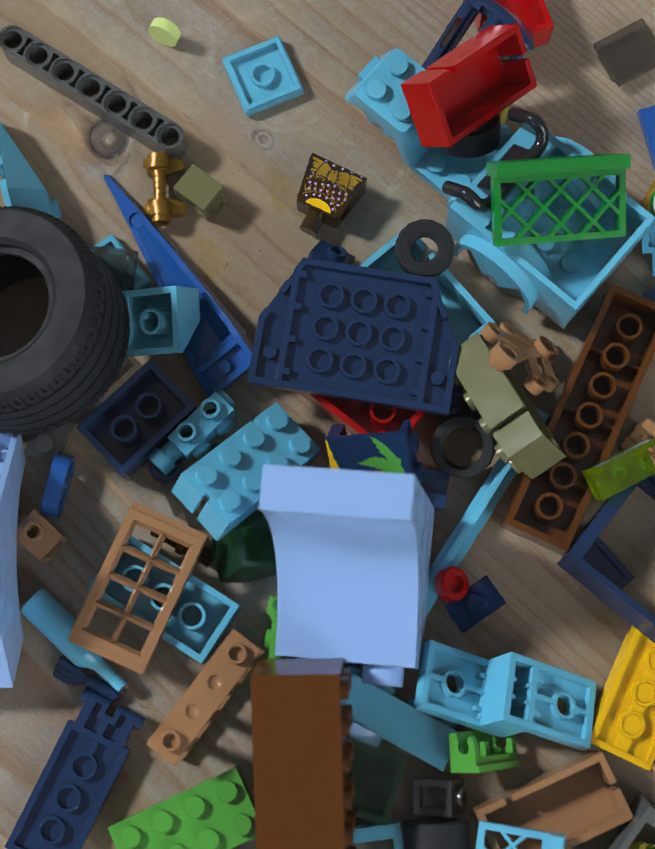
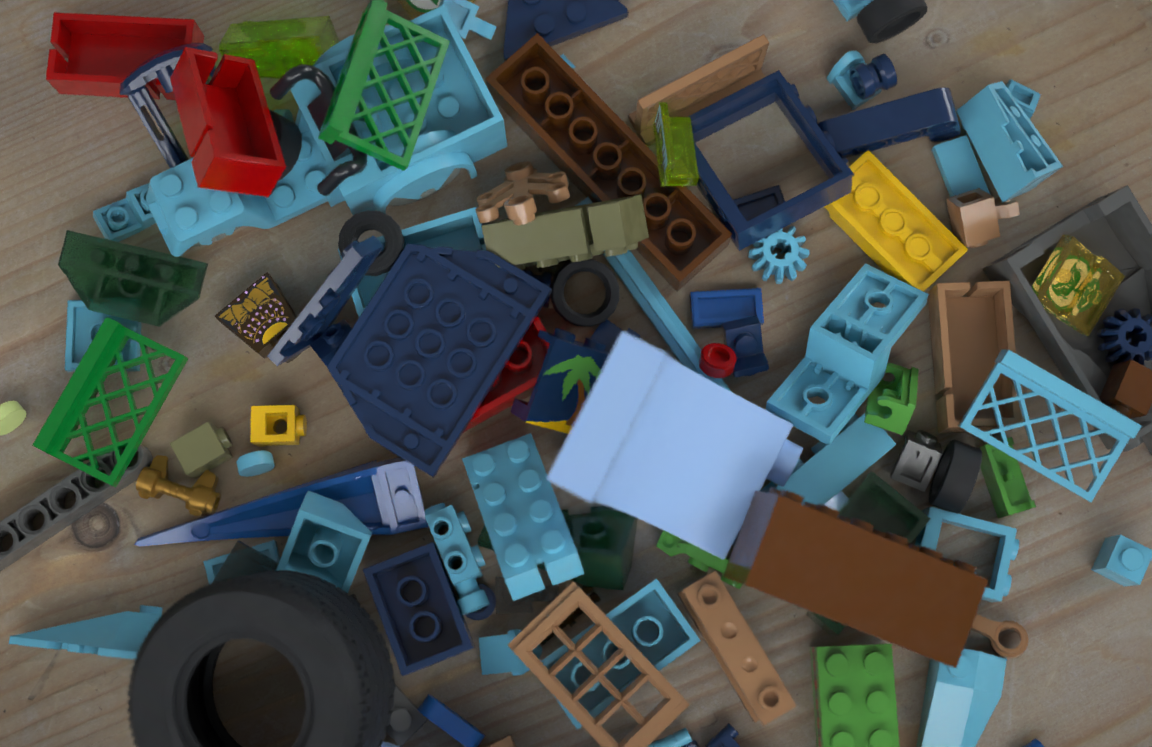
camera: 70 degrees left, 0 degrees up
(122, 500) = (499, 658): none -> medium azure tile
(206, 239) = (255, 463): none -> medium azure tile
(216, 79) = (81, 395): none -> green fence
(242, 232) = (264, 423): none -> yellow brick
(314, 73) = (130, 279): none -> clear green wedge
(358, 234) = (328, 300): none -> dark blue wing
(363, 45) = (125, 216): none -> medium azure slope
(504, 573) = (716, 307): none -> blue tile
(563, 102) = (280, 43): none -> clear neon green wedge
(569, 613) = (779, 267): none -> medium azure gear

